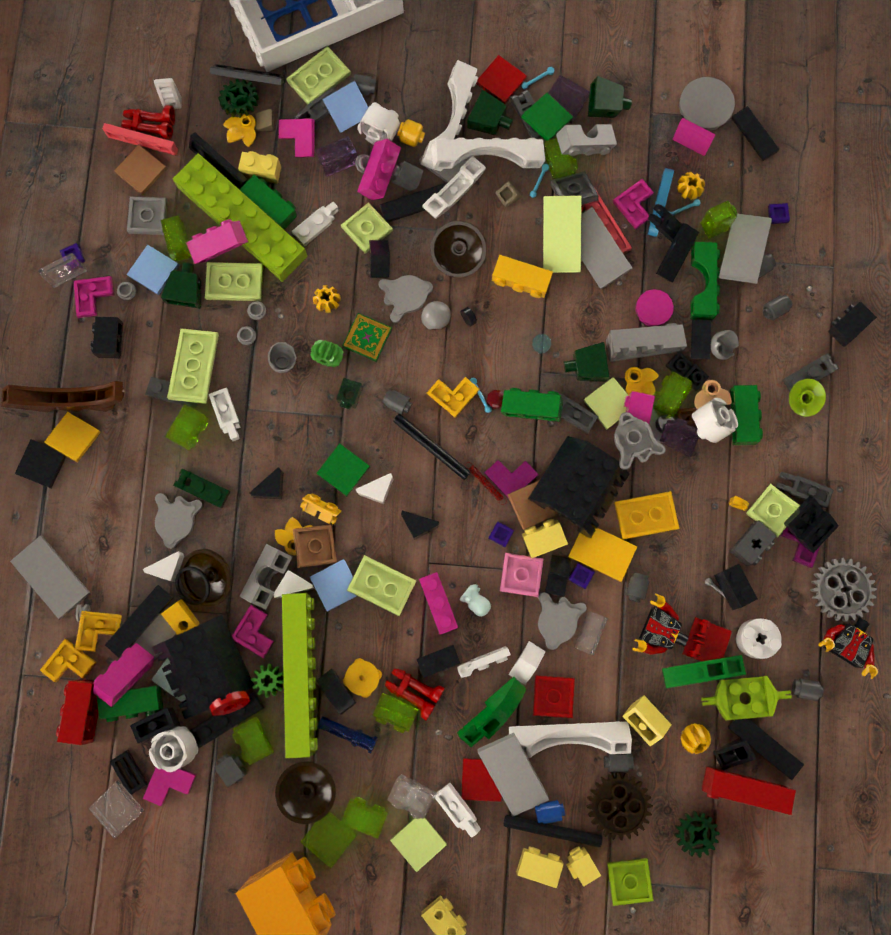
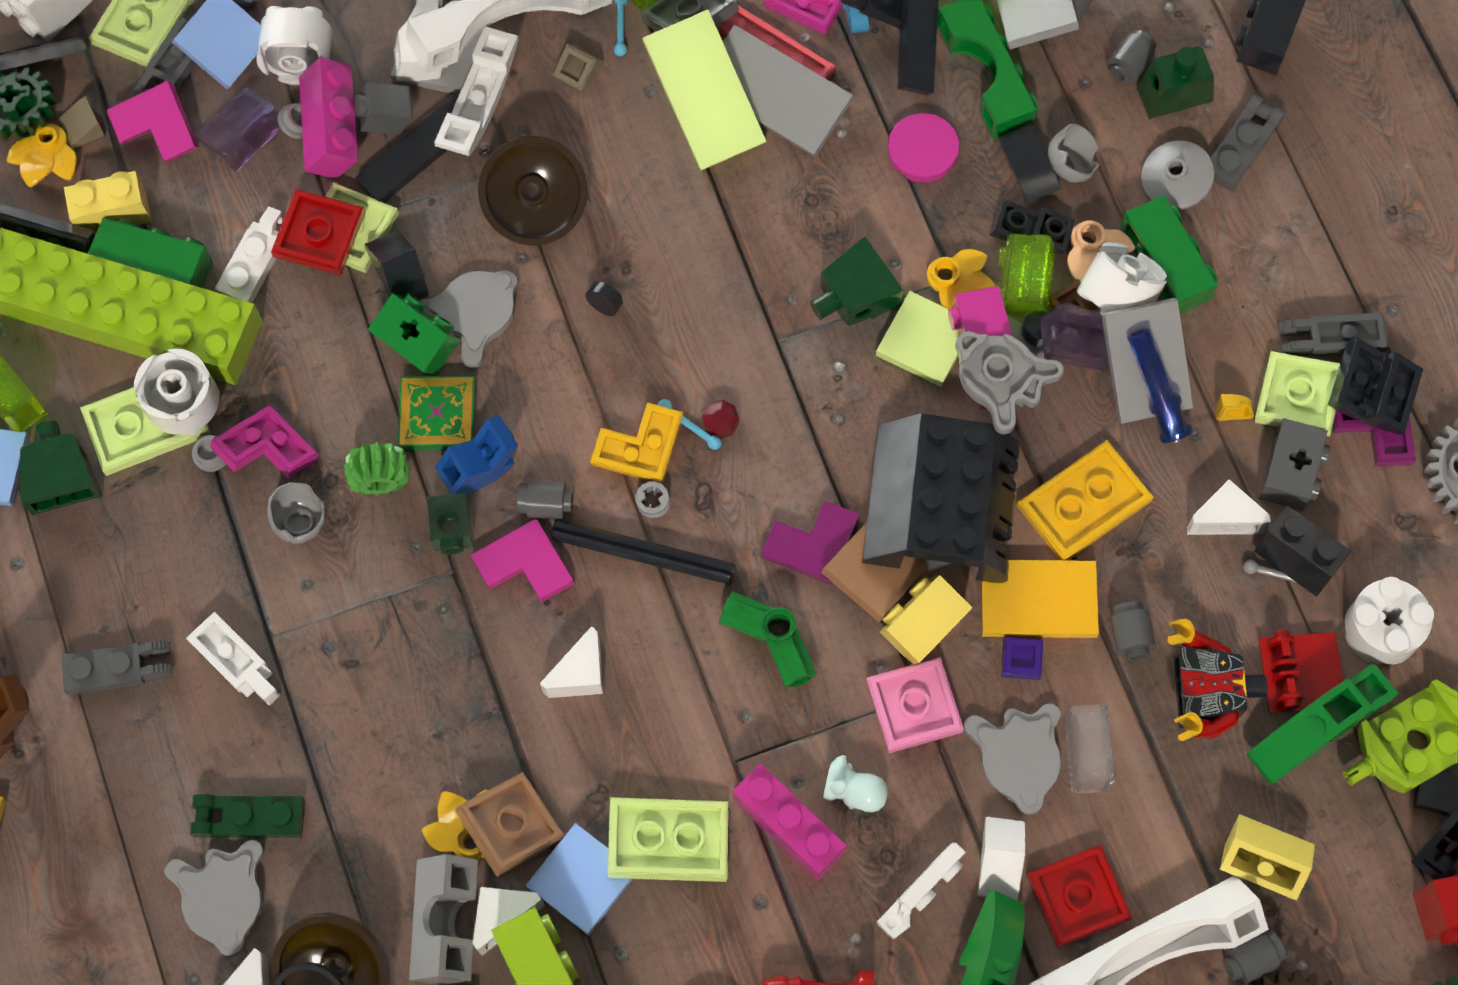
camera: 25 degrees left, 10 degrees down
(187, 427) = (171, 716): clear neon green brick -> none
(193, 366) = (134, 601): yellowish green tile -> none
(216, 241) = (84, 359): dark pink brick -> none
(246, 335) = (211, 505): light grey plate -> none
(261, 280) = (176, 392): none -> white brick
(270, 487) = (377, 755): black slope -> none
(286, 314) = (265, 435): none -> dark pink tile
(313, 503) = (504, 750): yellow hinge -> none
(331, 294) = (332, 376): yellow piece -> none
(343, 470) = (500, 664): green tile -> none
(350, 224) = (318, 232): none -> red tile
(365, 290) = (396, 325): none -> green brick
(375, 369) = (479, 461): none -> blue brick
(378, 422) = (527, 552): none -> dark pink tile
(411, 133) = (356, 36): yellow head -> none
(418, 525) = (684, 698): black slope -> none
(435, 315) = (544, 322): light grey hair -> none
(438, 661) = (838, 927): black brick -> none
(452, 426) = (641, 499): none -> light grey bush
(475, 525) = (787, 650): none -> green piece
(483, 484) = (737, 562): red piece -> none
(501, 534) = (843, 650): dark purple tile -> none
(521, 276) = (667, 191): yellow brick -> none
(532, 404) = (790, 397): green brick -> none
(541, 343) = (755, 290): clear light blue piece -> none
(558, 575) = (981, 676): black slope -> none
(577, 414) = (863, 381): dark grey plate -> none
(645, 341) = (934, 208): light grey wedge -> none
(695, 738) = (1369, 849): yellow piece -> none
(706, 485) = (1164, 401): none -> clear blue pin
(708, 463) = (1166, 329): none -> light grey tile
(710, 552) = (1229, 513): none -> white slope
(771, 385) = (1182, 189): none -> light grey dish
(794, 330) = (1177, 82): none -> dark green torso
(814, 399) = (1271, 177): lime dish -> none

